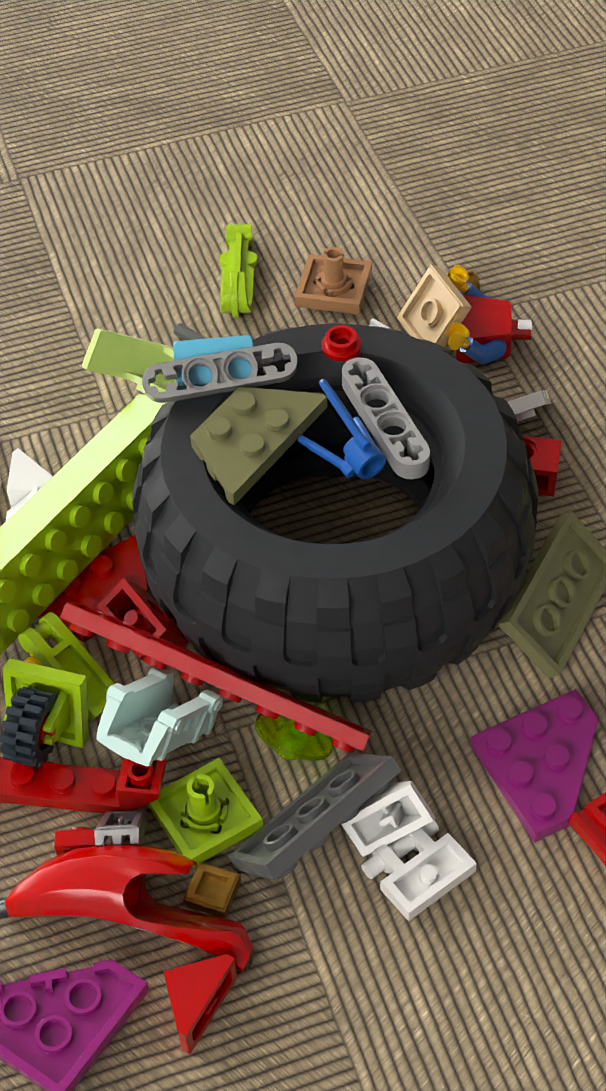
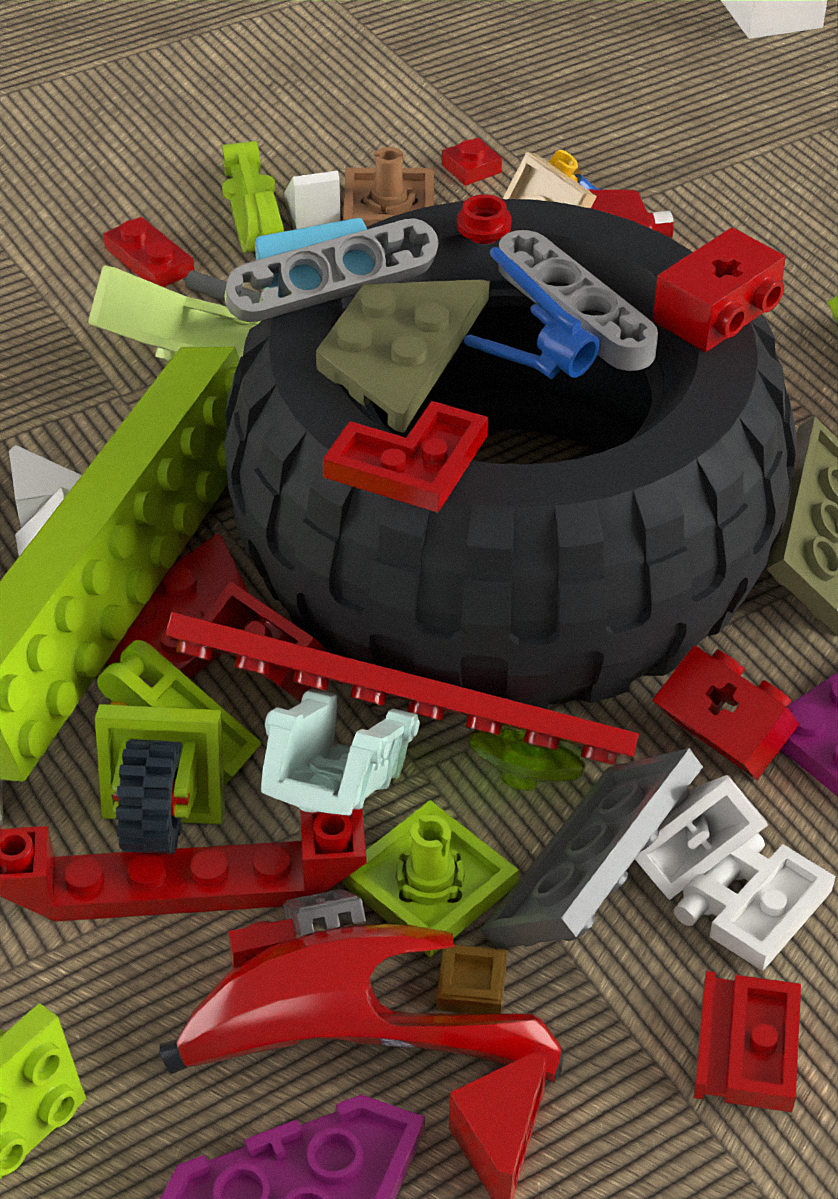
camera: 15 degrees left, 5 degrees down
(155, 304) = (148, 252): none -> red plate
(229, 537) = (412, 468): none -> red plate
(278, 283) = (313, 199): none -> white slope
(379, 970) = (749, 1041): none -> red plate
(404, 257) = (471, 161): none -> red plate
(447, 747) = (745, 737): none -> red brick
(485, 425) = (719, 289): none -> red brick

